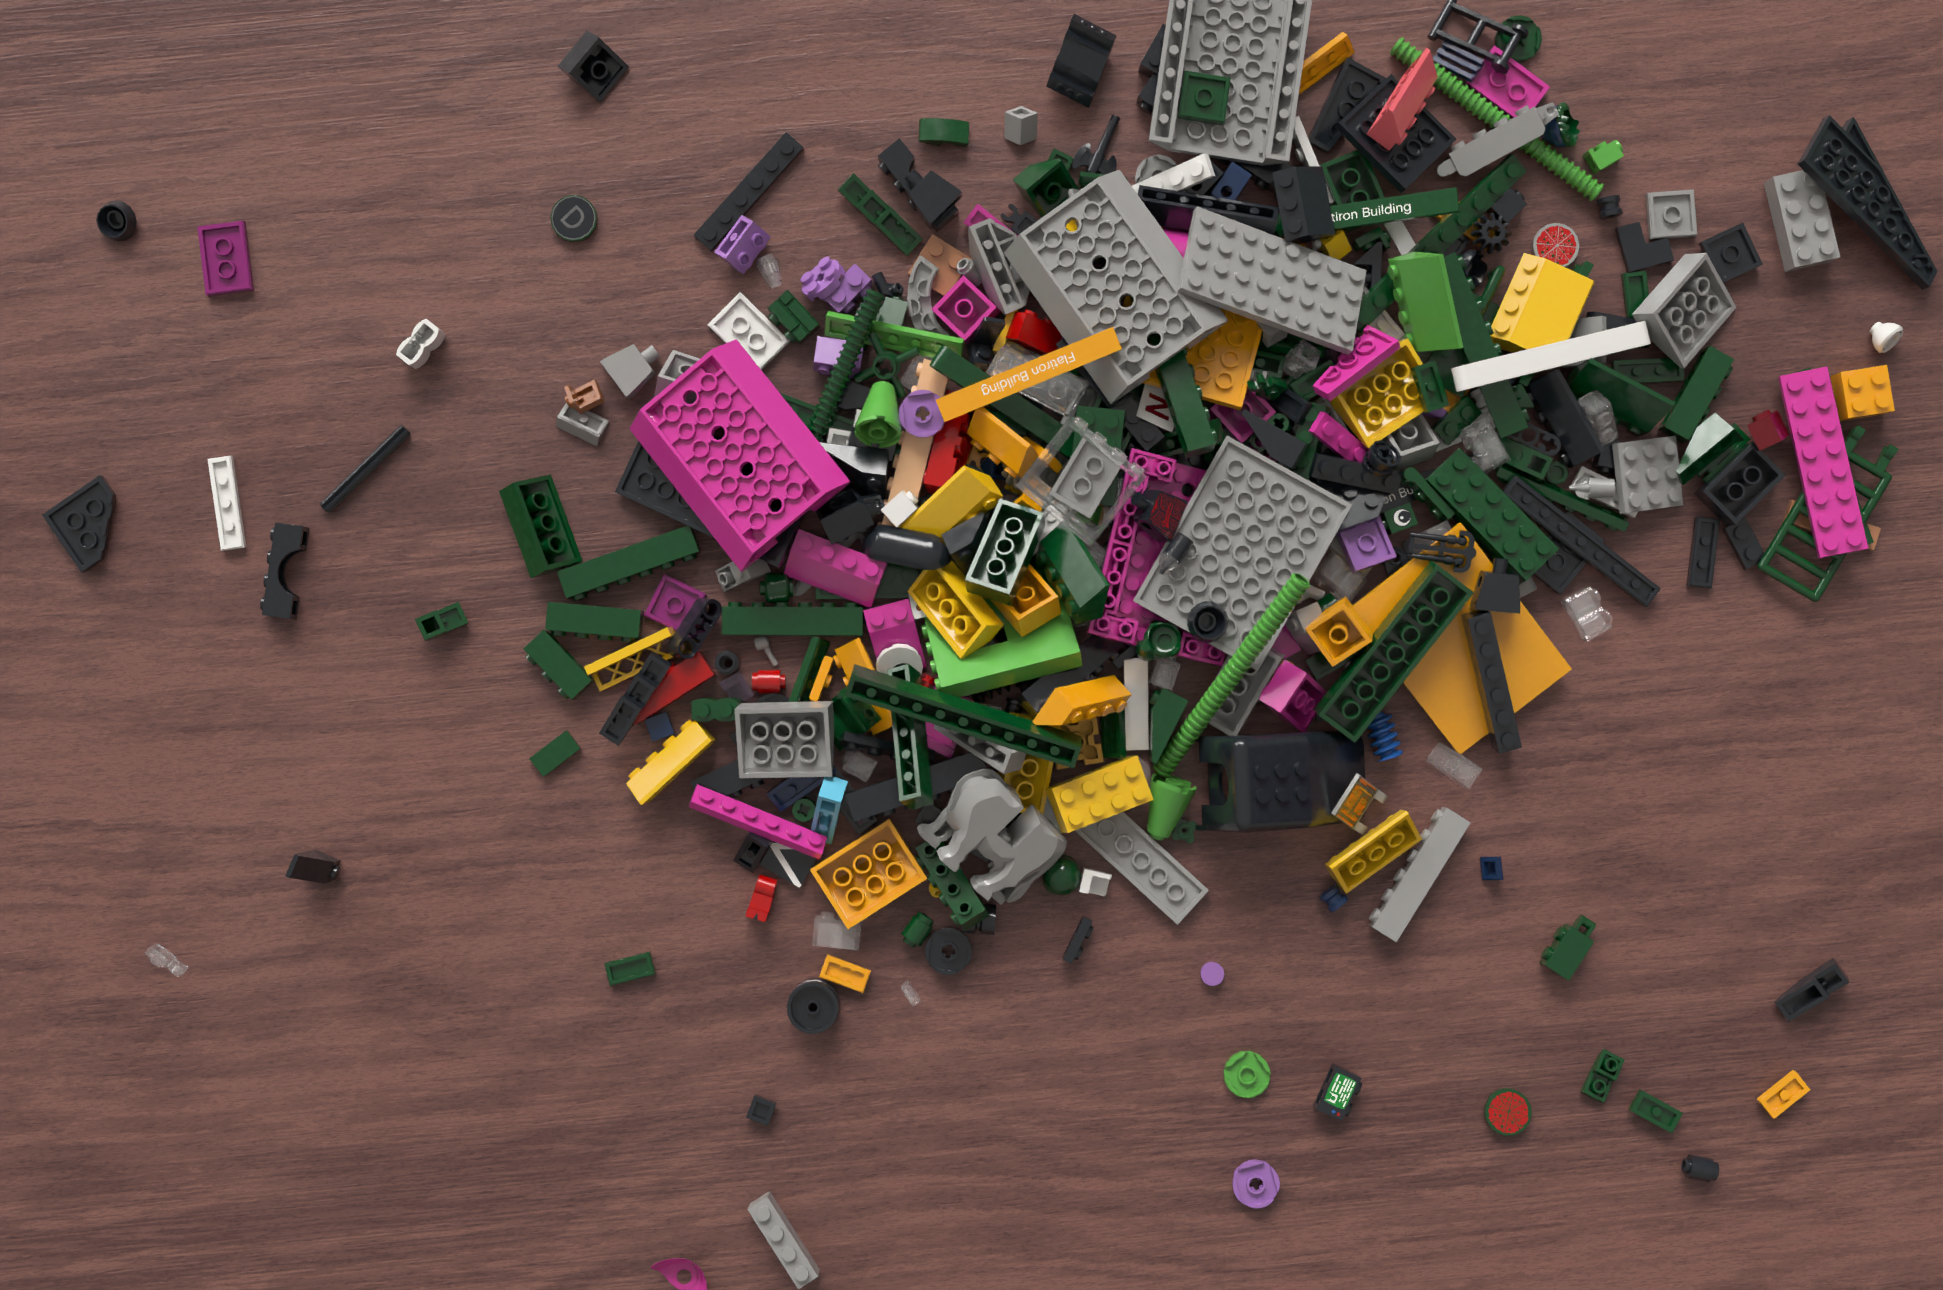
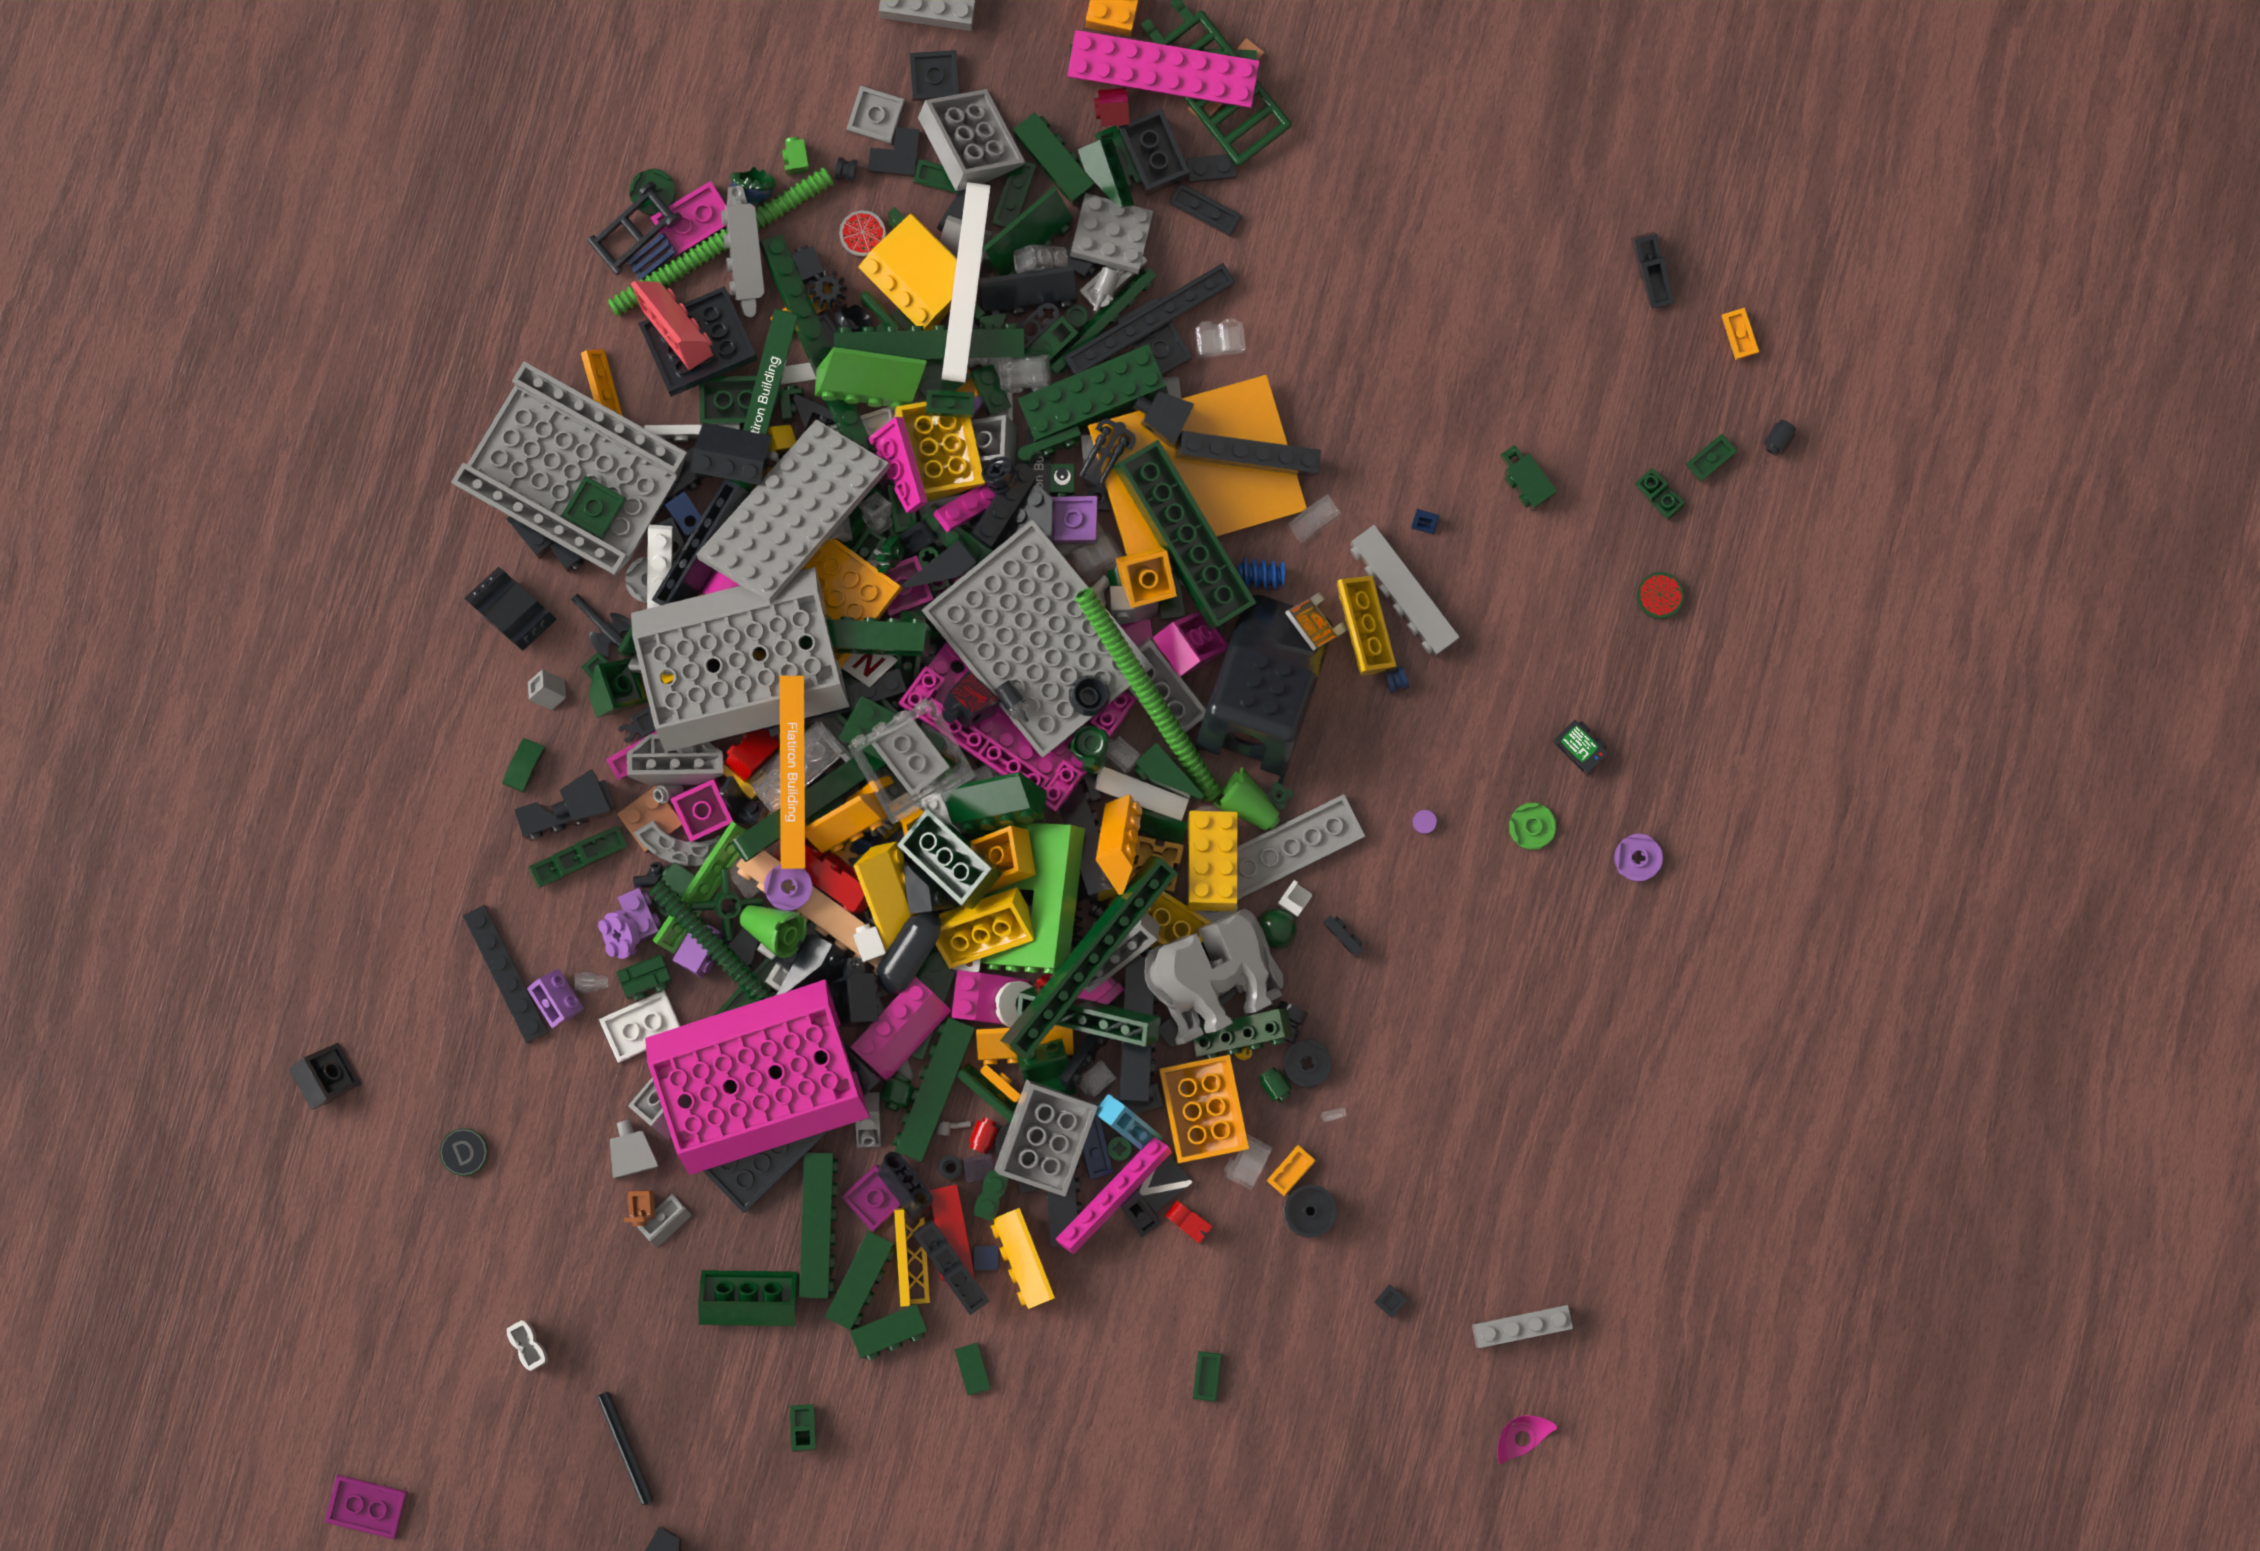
camera: 75 degrees left, 5 degrees down
(1348, 90) = (639, 370): black wing -> none

